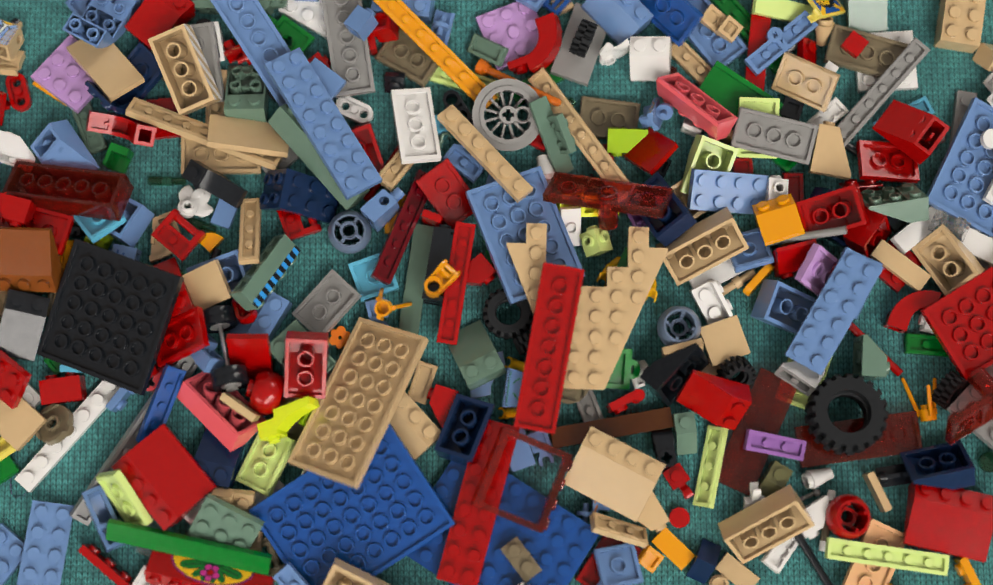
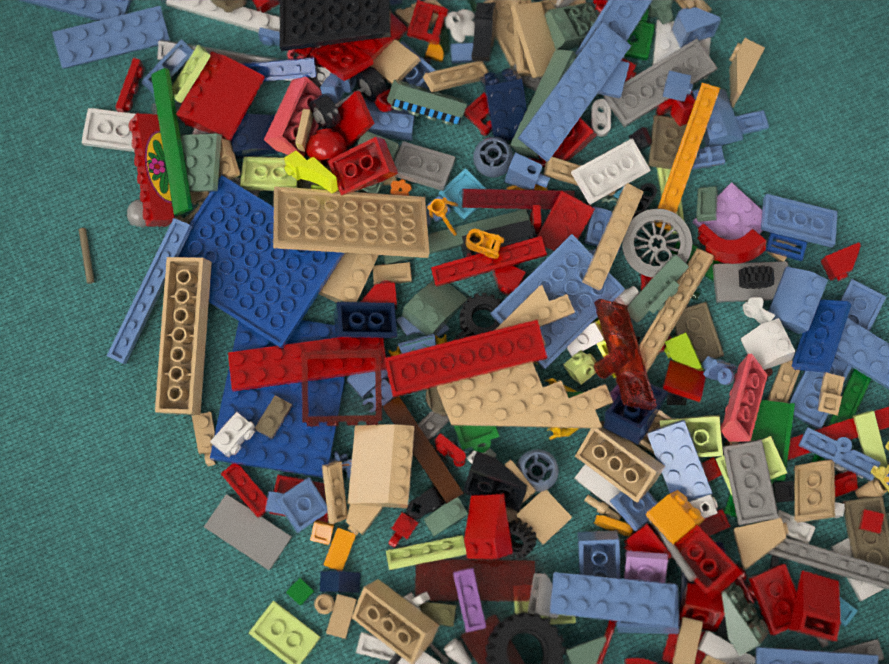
camera: 65 degrees right, 5 degrees down
(484, 68) = (689, 208): orange piece -> none
(679, 517) = (369, 543): red tile -> none
(689, 128) = (721, 406): white slope -> none
(711, 301) = (574, 490): white bracket -> none

